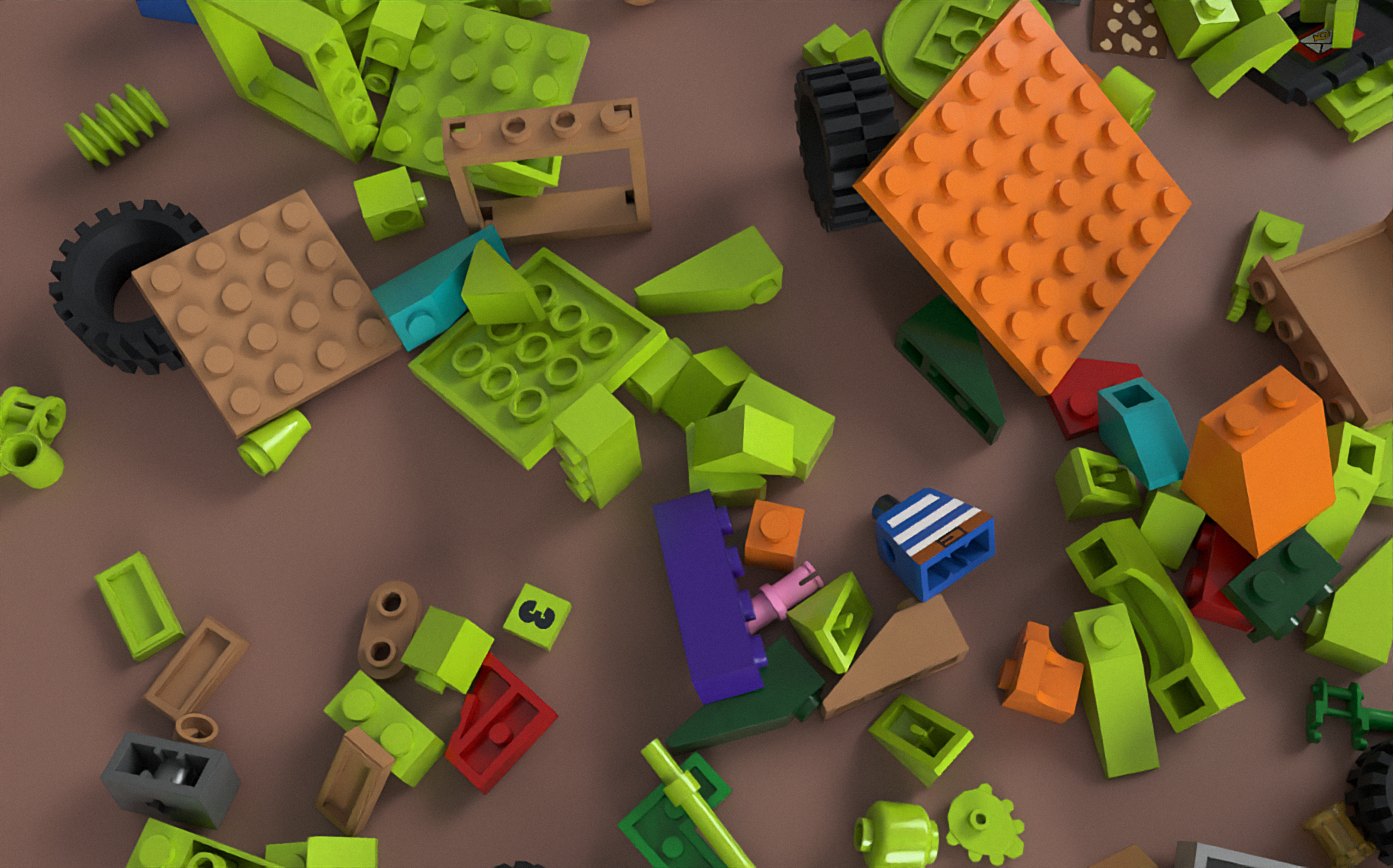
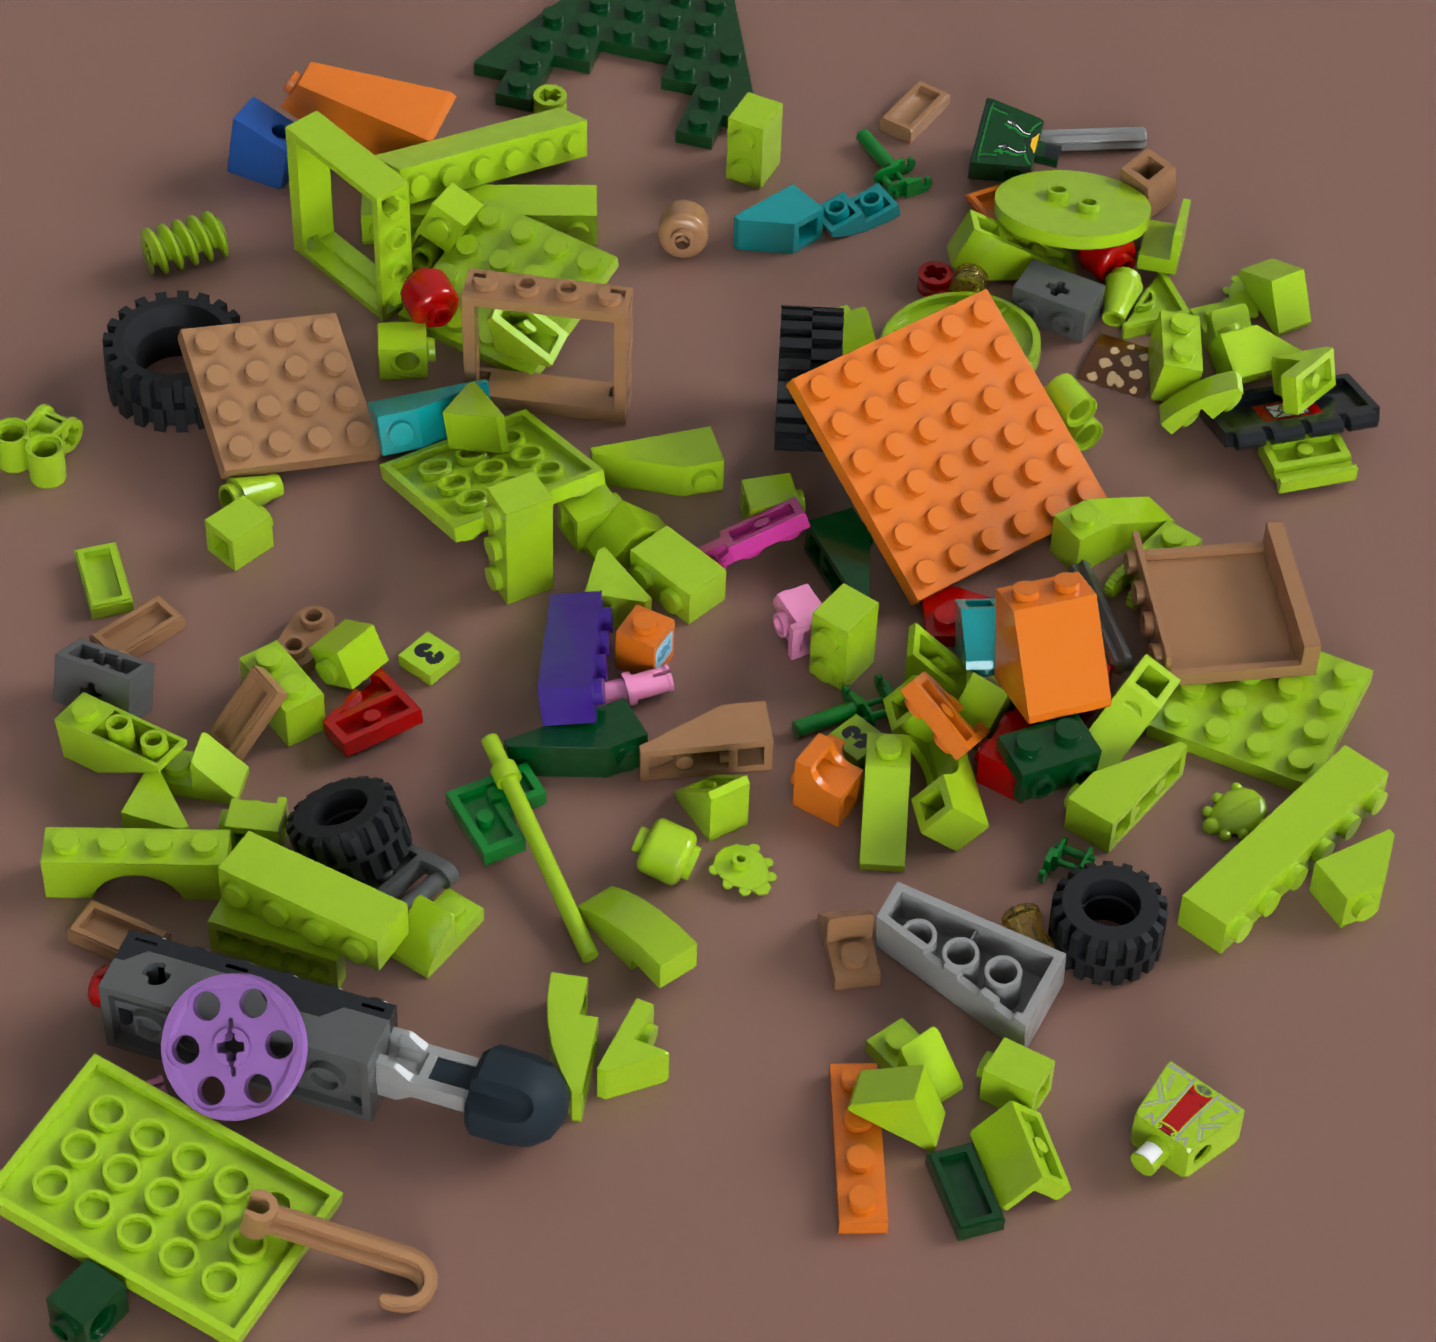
camera: 10 degrees right, 20 degrees down
(277, 501) = (239, 532): none -> lime brick
(401, 137) = (429, 297): none -> red head
(743, 443) = (642, 563): lime slope -> none
(833, 622) = (670, 704): lime slope -> none
(846, 304) = (766, 492): none -> lime brick
(847, 353) = (758, 532): none -> dark pink hinge
(931, 451) = (794, 618): none -> bright pink brick
(931, 539) = (764, 667): torso -> none
(998, 472) = (843, 637): none -> lime brick
(1022, 557) = (840, 713): none -> green piece
(1044, 600) = (855, 736): none -> lime tile
(1162, 578) = (941, 713): none -> orange wing
(1202, 241) = (1103, 528): none -> lime slope
(1226, 336) = (1115, 647): none -> dark grey axle

